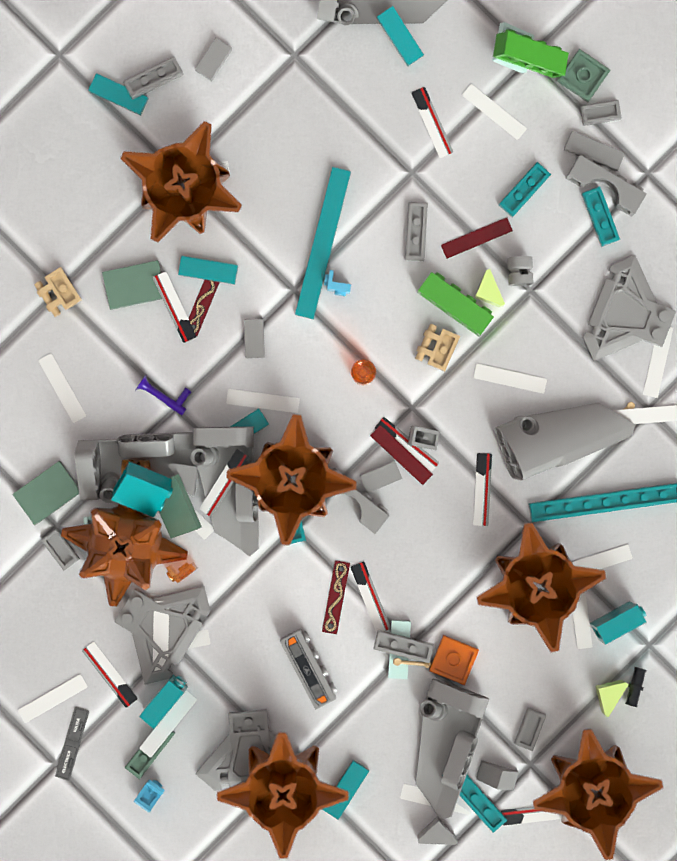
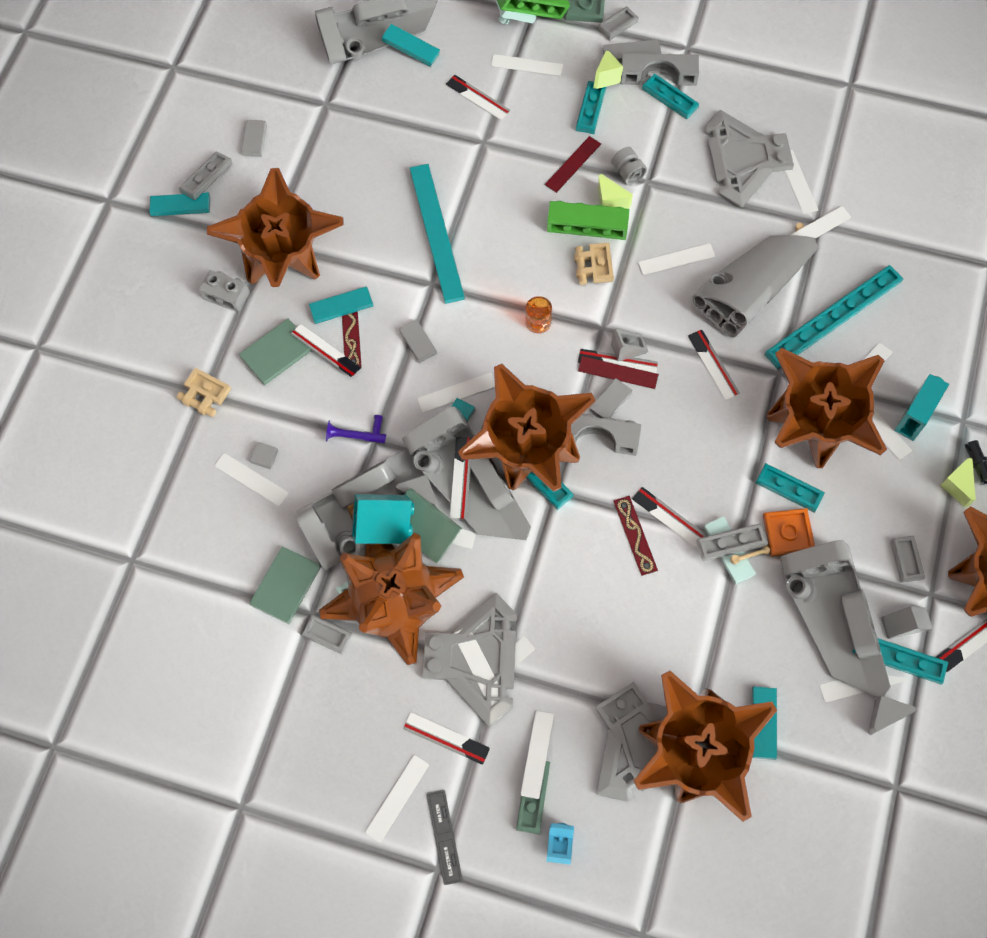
camera: 25 degrees left, 20 degrees down
(81, 374) = (264, 455): none -> light grey tile
(116, 205) = (224, 290): none -> light grey brick
(164, 701) = (519, 726): teal brick -> none
(185, 570) = (468, 587): clear orange bracket -> none
(308, 668) = (650, 615): brick -> none
(339, 289) = (470, 258): medium azure bracket -> none
(416, 231) = (516, 183): light grey tile -> none
(477, 625) = (790, 487): none -> teal tile
(558, 166) = (608, 71): none -> yellowish green slope

